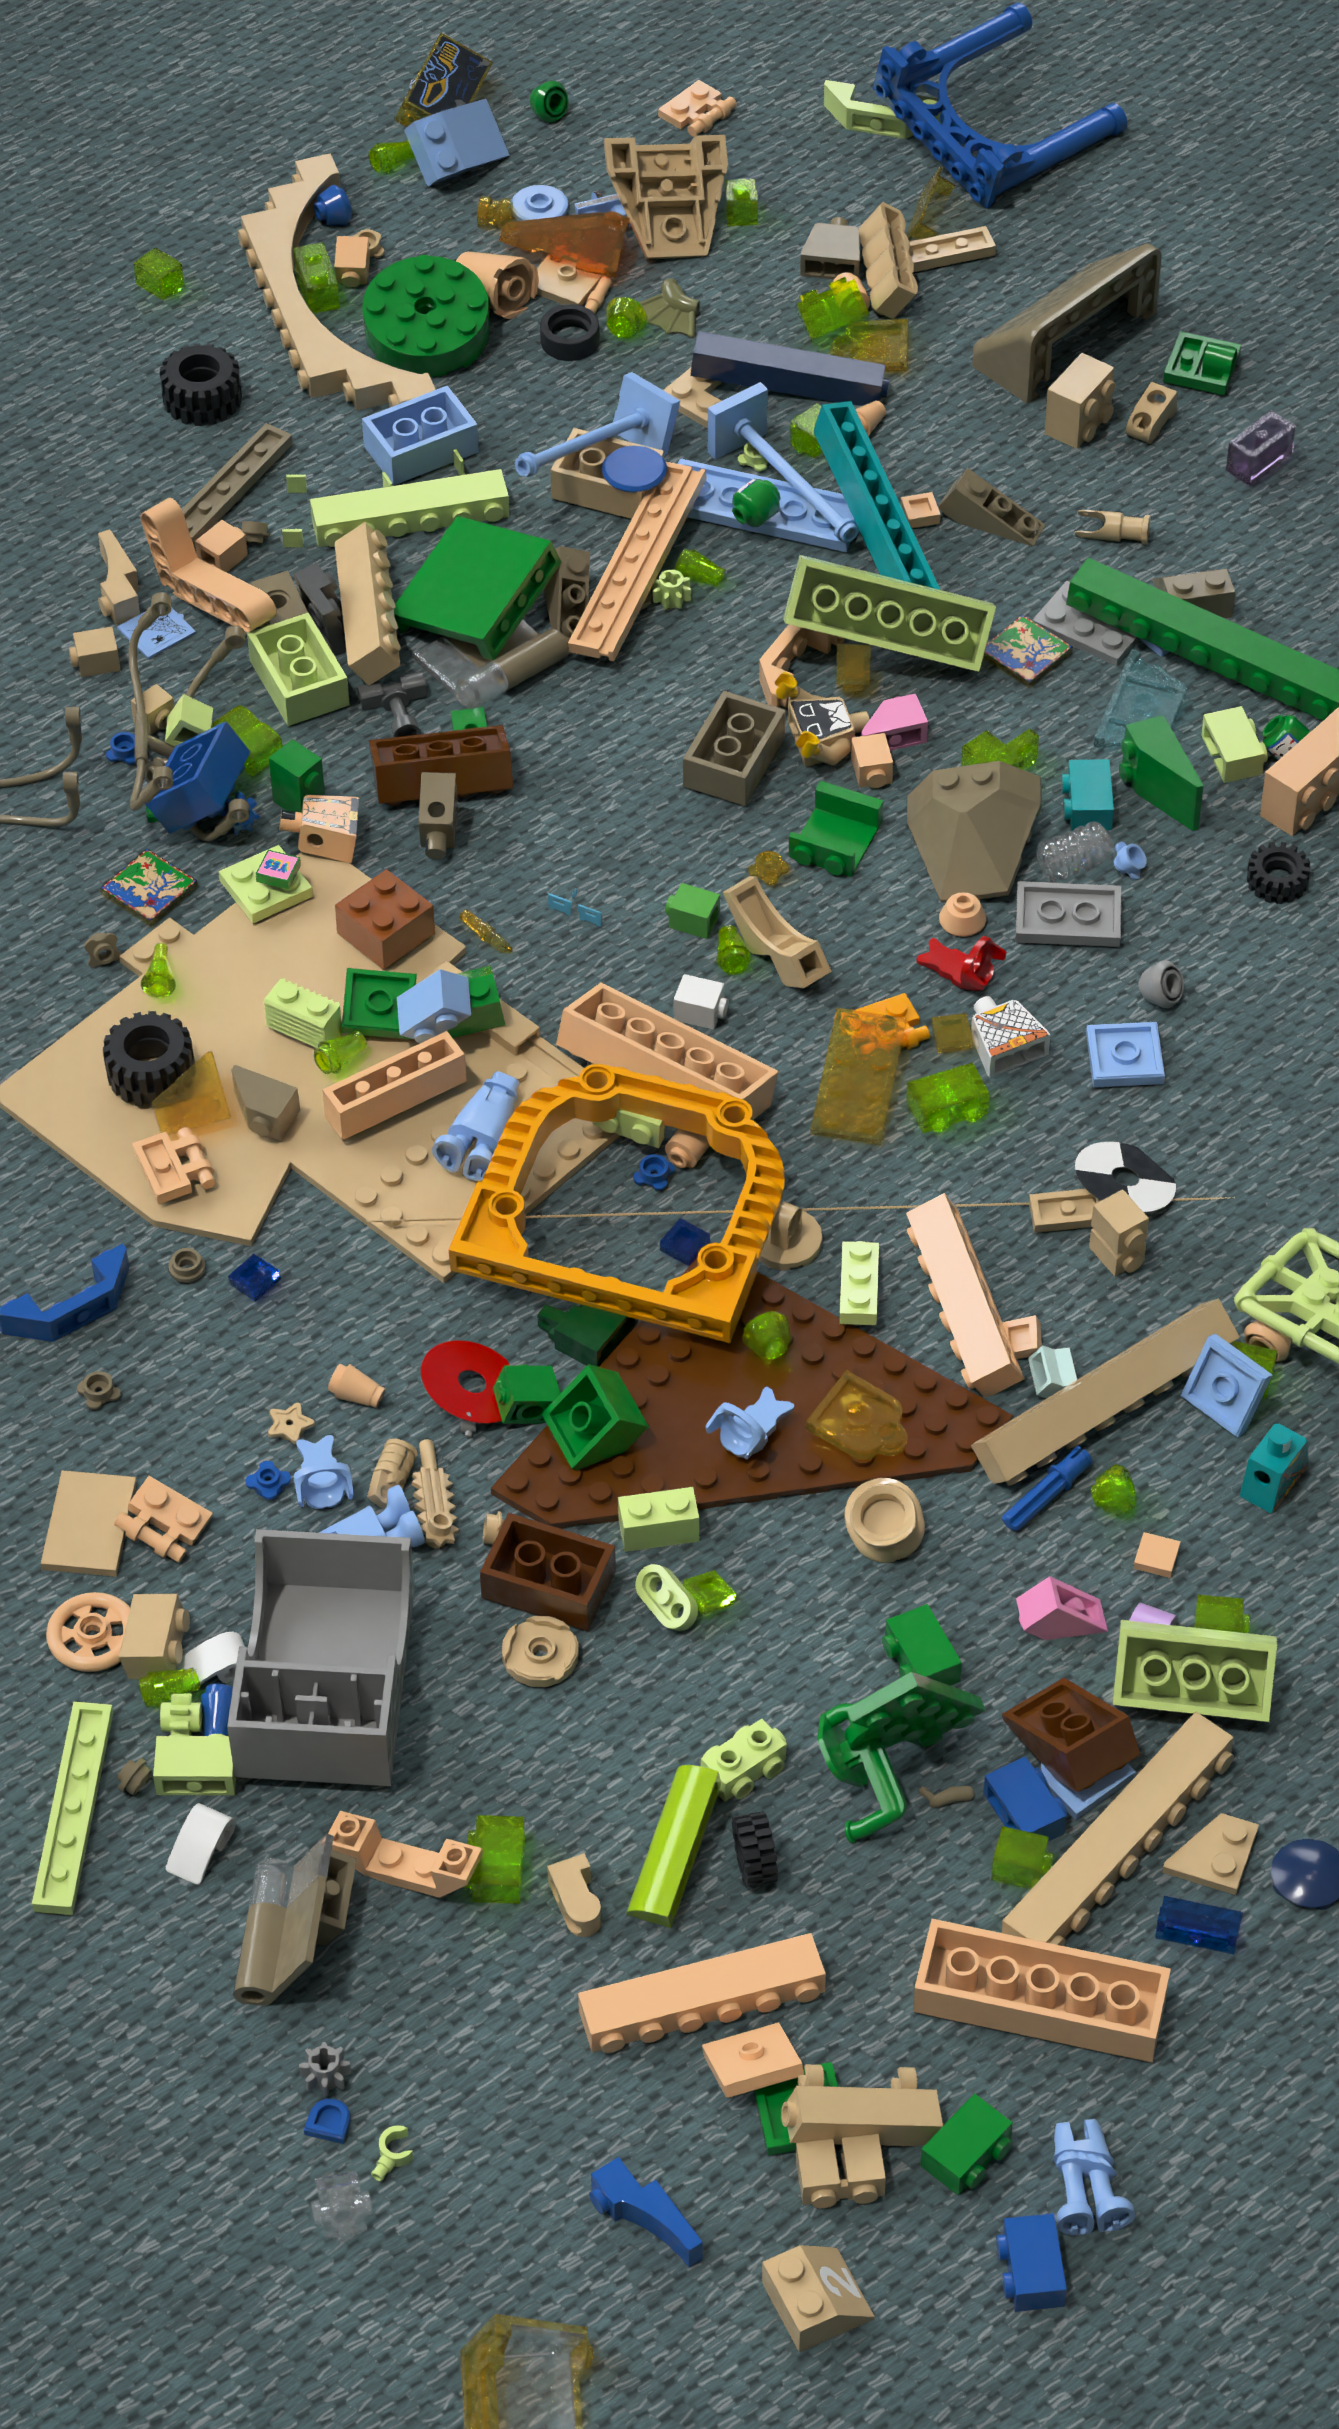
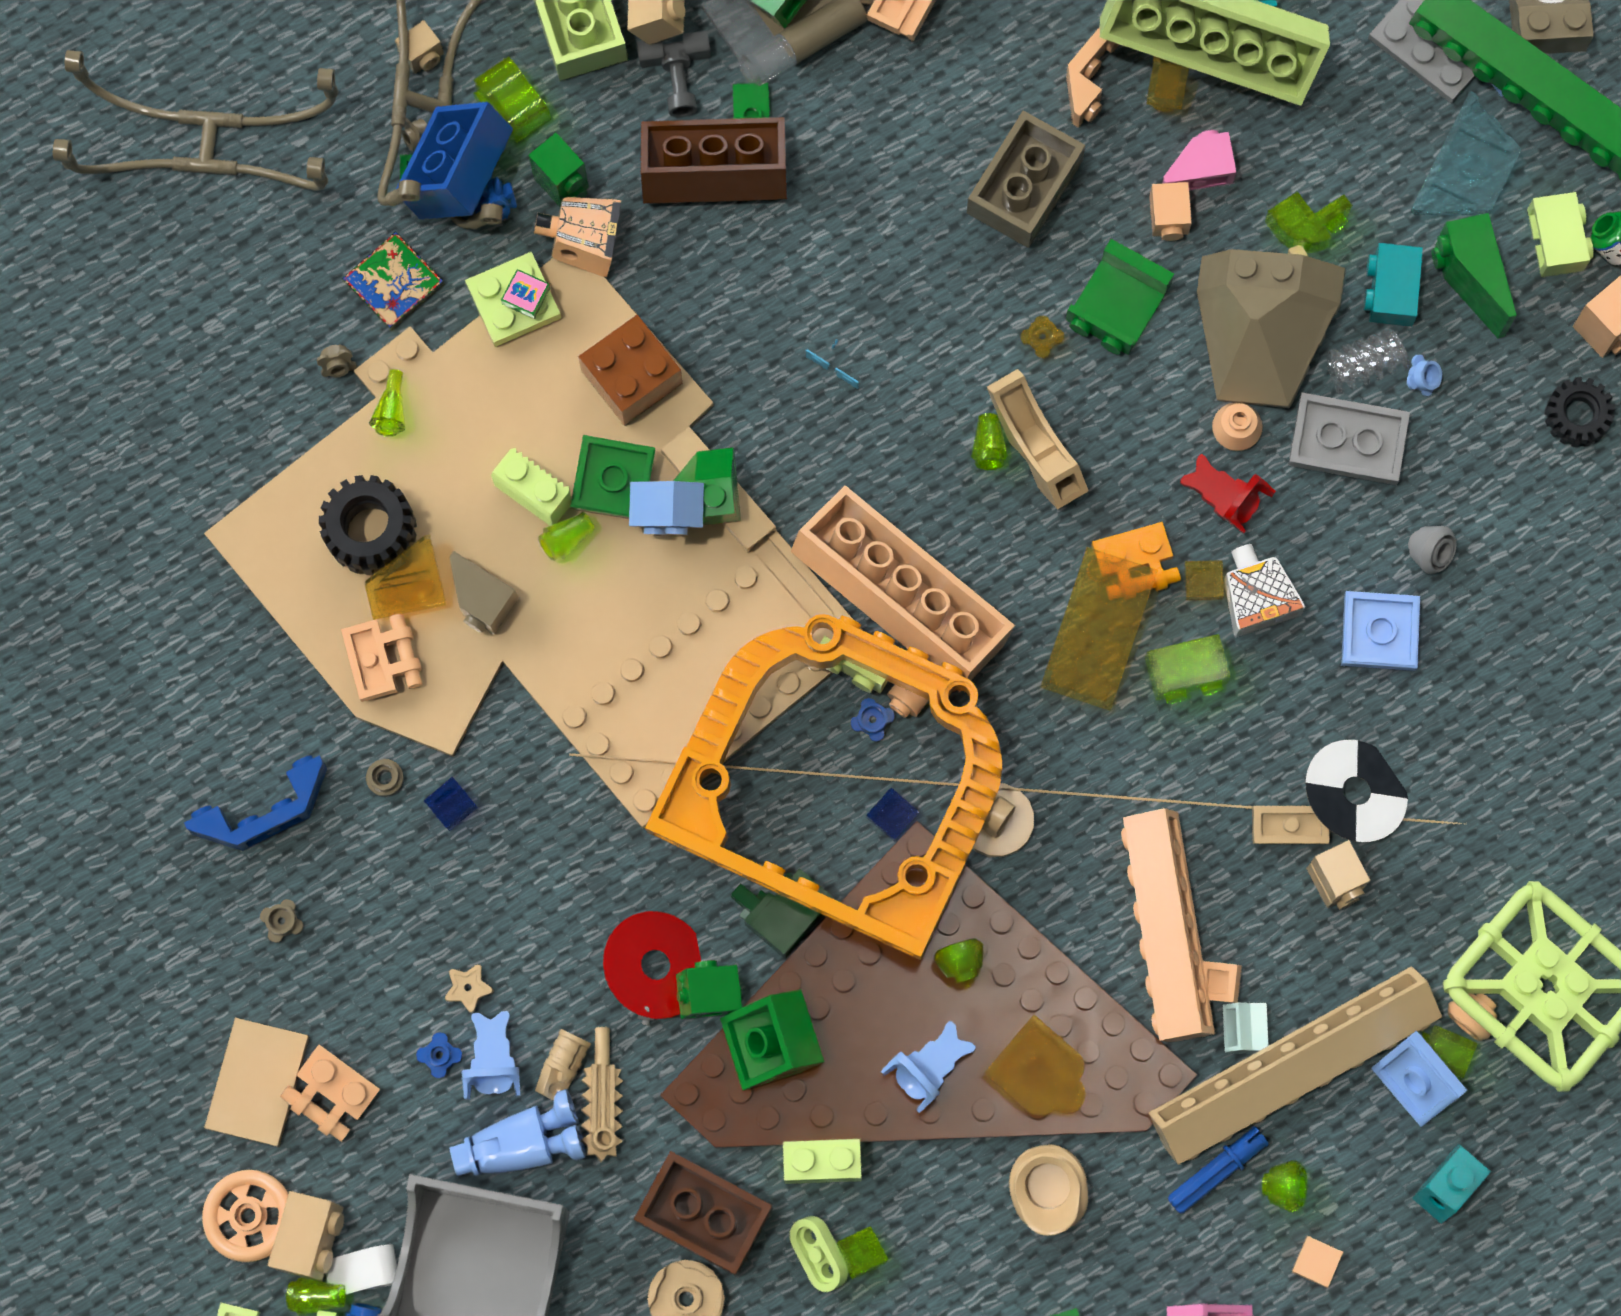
camera: 10 degrees right, 25 degrees up
(122, 748) = (375, 97): blue plate -> none
(187, 720) = (453, 77): yellowish green brick -> none
(355, 1386) = (538, 953): light nougat cone -> none
(394, 1085) = (616, 594): light nougat brick -> none
(438, 822) = (705, 214): dark tan torso -> none
(482, 1120) = (702, 649): light blue piece -> none
(485, 931) = (736, 383): clear yellow piece -> none
(492, 1527) = (658, 1146): tan plate -> none
(693, 910) = (955, 387): bright green brick -> none
(700, 1002) = (947, 510): white brick -> none
(818, 723) = (1122, 156): torso -> none
(859, 1283) = (1063, 892): yellowish green plate -> none
(1026, 651) = (1358, 74): tile -> none

